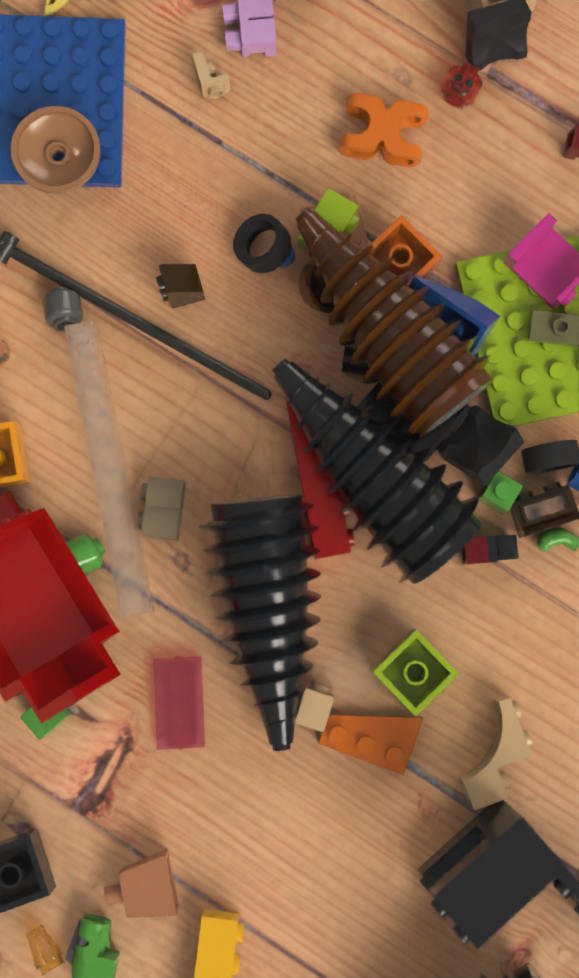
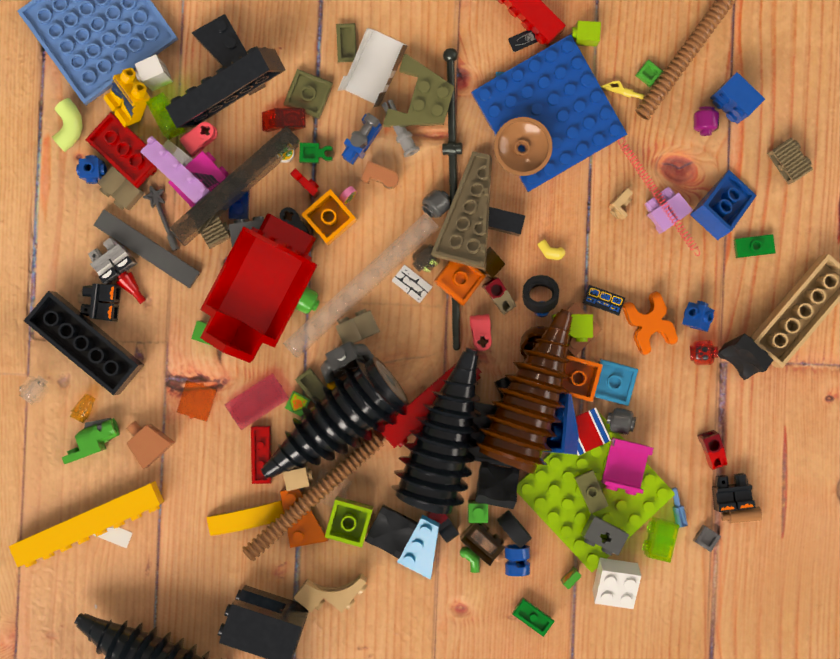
camera: 60 degrees right, 5 degrees up
(111, 281) = (466, 224): none -> dark tan wing
(125, 363) = (424, 259): none -> clear smoke head
(129, 785) = (196, 400): none -> clear orange piece
(134, 241) = (505, 221): none -> black brick
(148, 404) = (412, 283): none -> white sticker
(178, 336) = (459, 281): none -> orange tile
(187, 551) = (343, 357): none -> dark grey torso
(201, 615) = (311, 384): none -> olive tile
(214, 650) = (296, 403): none -> tile
(217, 202) = (551, 253): none -> light yellow arm
(230, 18) = (628, 148): none -> coral piece
(232, 298) = (499, 295): none -> leg
(251, 739) = (260, 453): none -> red tile
(261, 348) = (481, 327): none -> coral piece
(319, 171) = (603, 300): none -> tile
(328, 813) = (244, 519): none -> yellow slope
(352, 703) = (311, 498): none -> medium nougat piece
(410, 63) = (698, 316): none -> blue brick
(436, 215) = (616, 382): none -> dark azure plate
(460, 624) = (391, 531): none -> black brick
(480, 282) = (591, 431): none -> red sticker
(489, 238) = (621, 421): none -> dark grey head
(504, 596) = (421, 547): none -> wing

